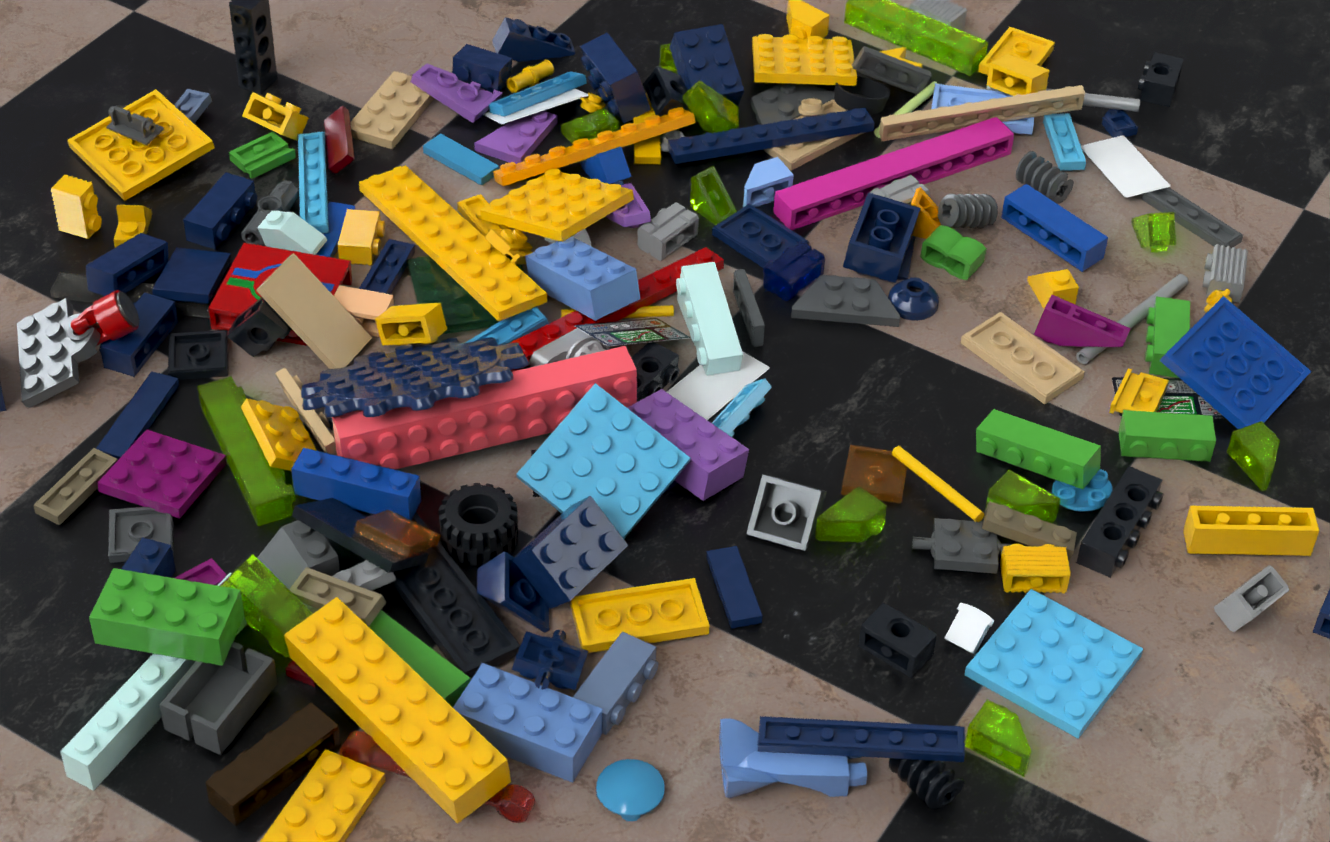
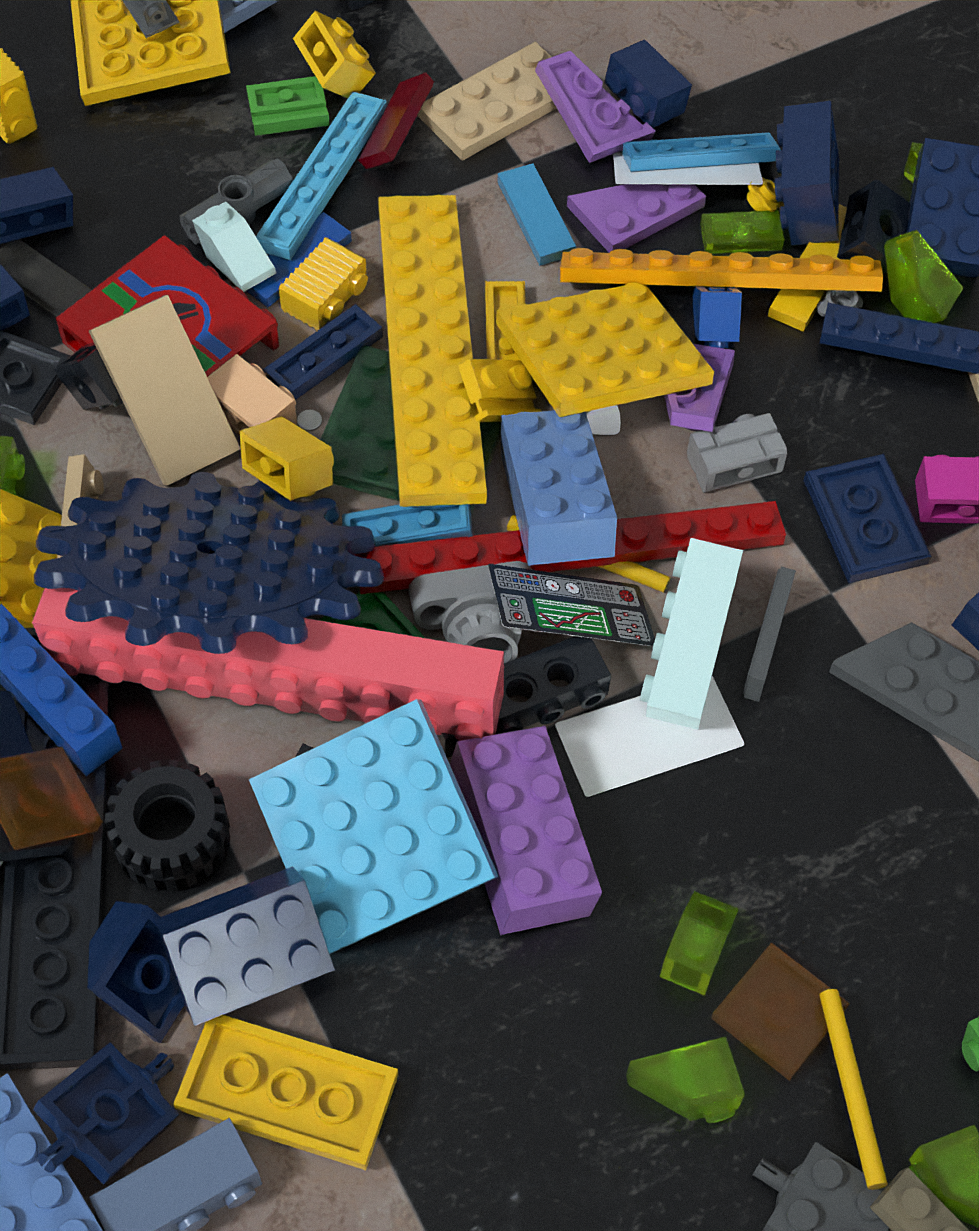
camera: 30 degrees right, 15 degrees up
(132, 221) = (69, 145): yellow slope -> none
(192, 275) = (79, 254): dark blue tile -> none
(220, 210) = (179, 170): dark blue brick -> none
(529, 42) = (741, 66): dark blue slope -> none
(530, 76) = (709, 119): yellow pin -> none
(710, 196) = (832, 422): clear neon green slope -> none
(734, 587) = (451, 1107): dark blue tile -> none
(737, 410) = (643, 804): medium azure plate -> none
(765, 180) = (927, 429): light blue slope -> none
(786, 512) = (602, 1017): slope -> none
(793, 270) = (874, 598): clear blue brick -> none
(813, 462) = (698, 942): none -> clear neon green slope

